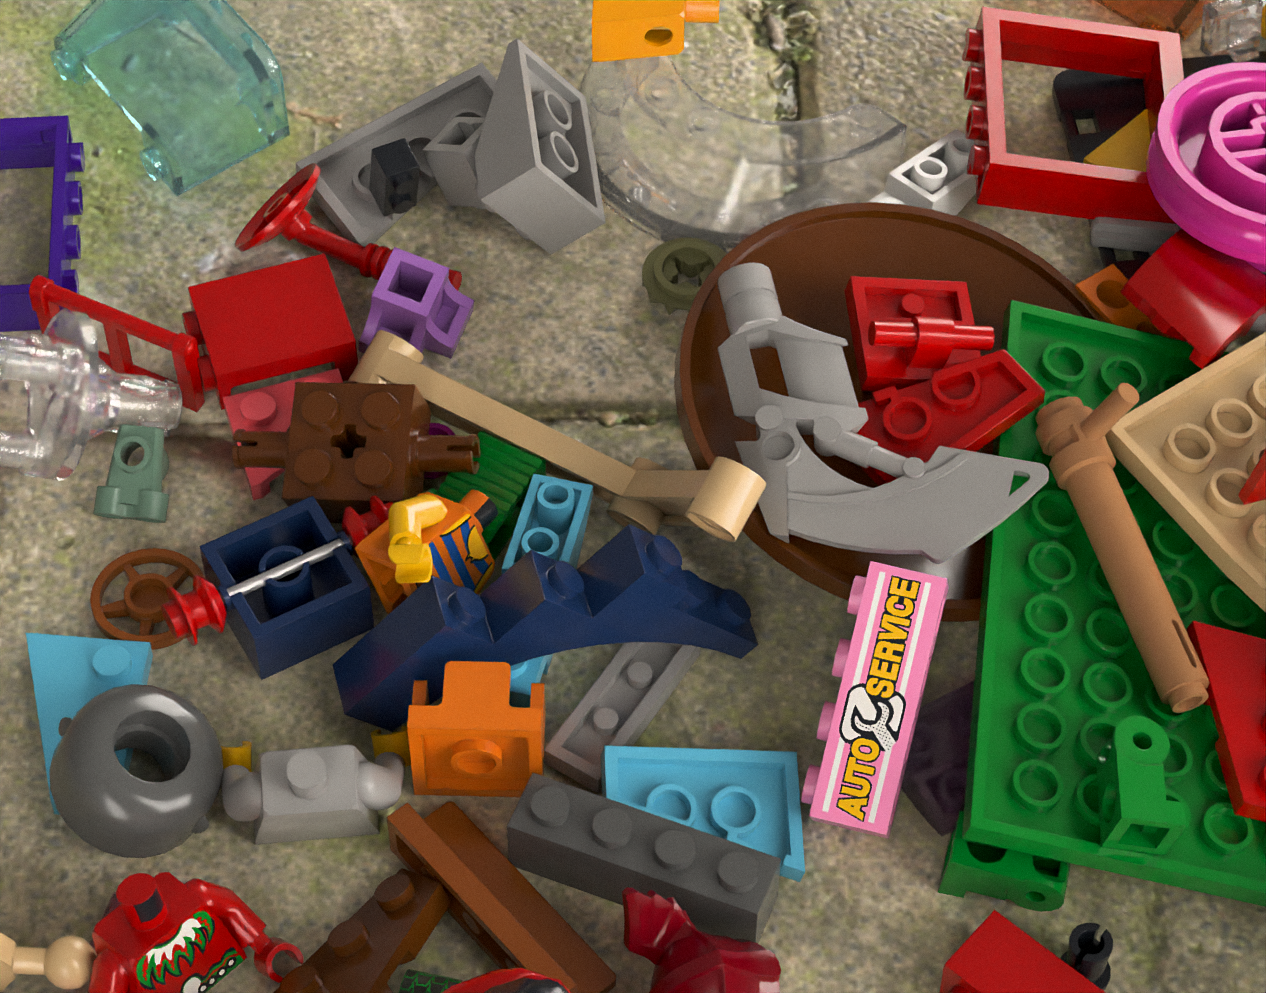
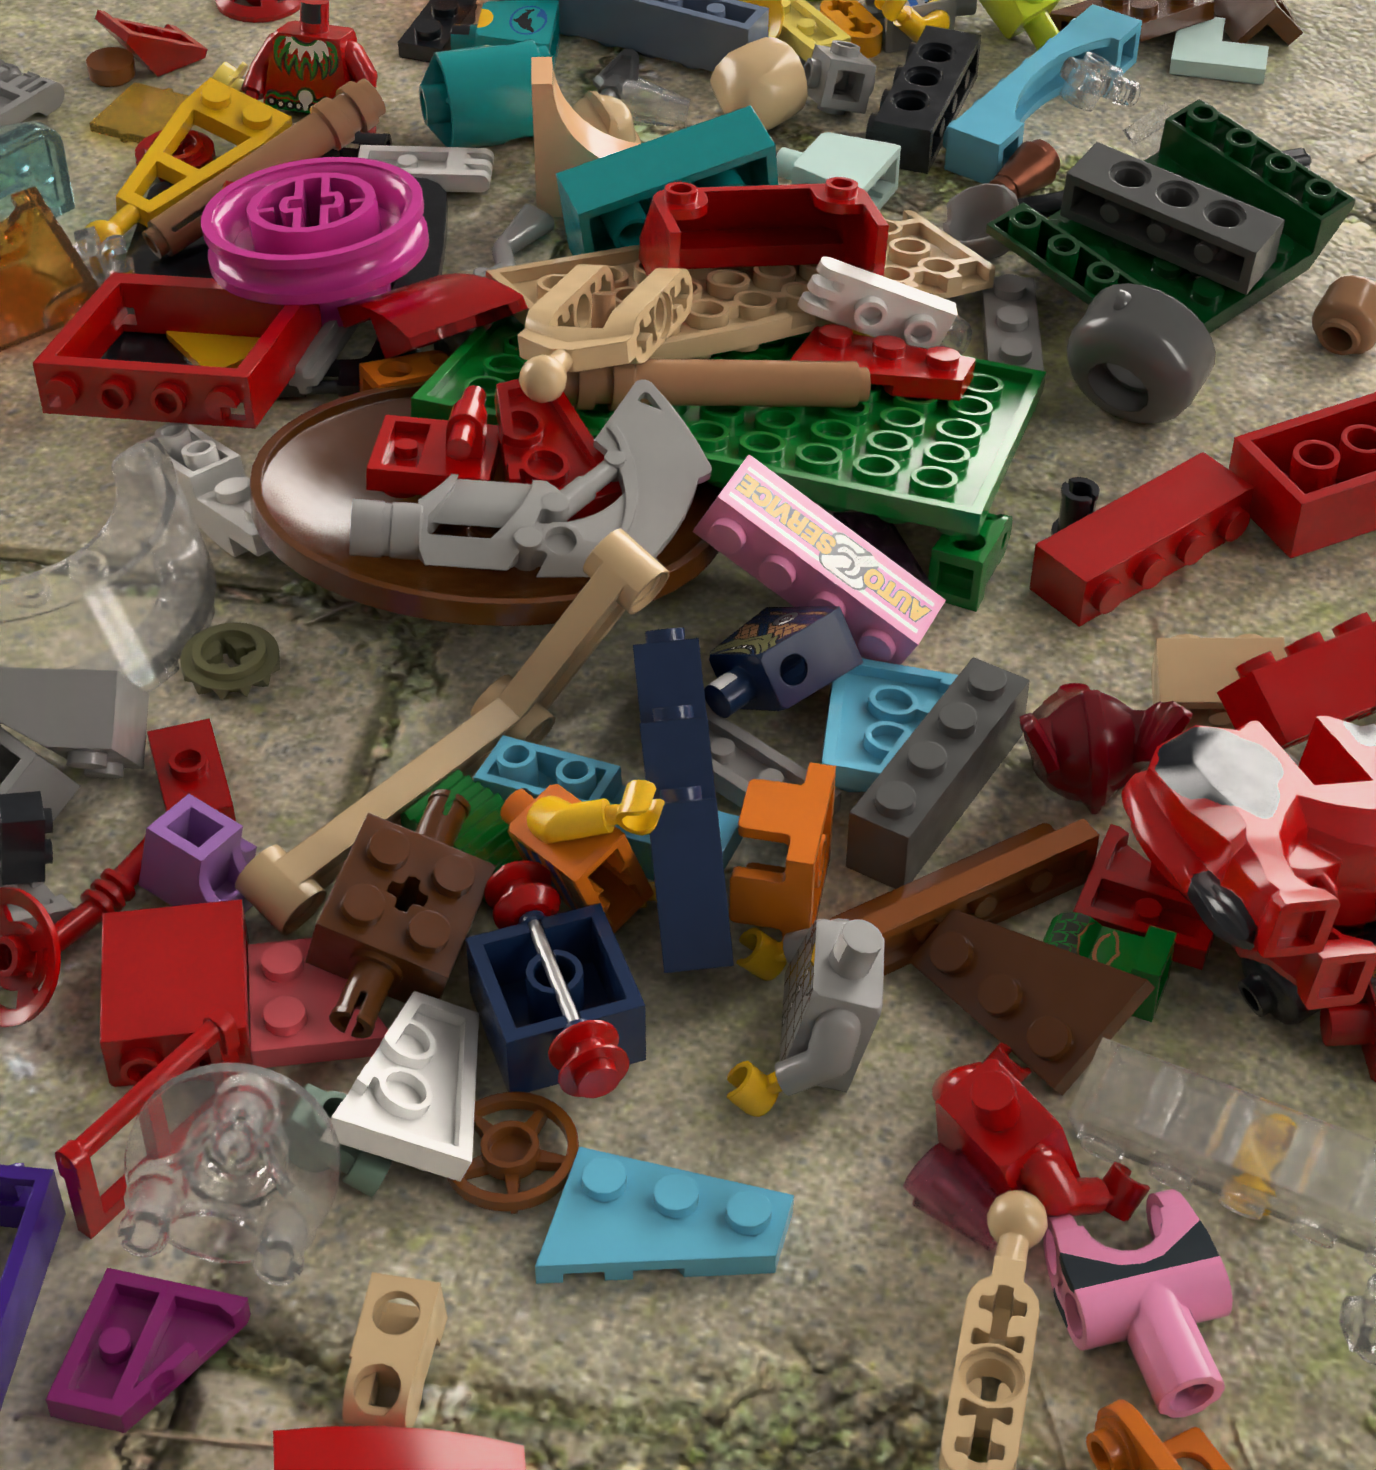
camera: 80 degrees left, 10 degrees down
(110, 804) = (773, 1146): dark grey piece -> none
(167, 507) = (418, 1090): none -> white wing
(537, 285) = (191, 764): none -> red plate
(753, 692) = (780, 659): none -> dark blue torso
(1134, 791) = (950, 419): green leg -> none
(1152, 423) = (561, 336): none -> tan piece

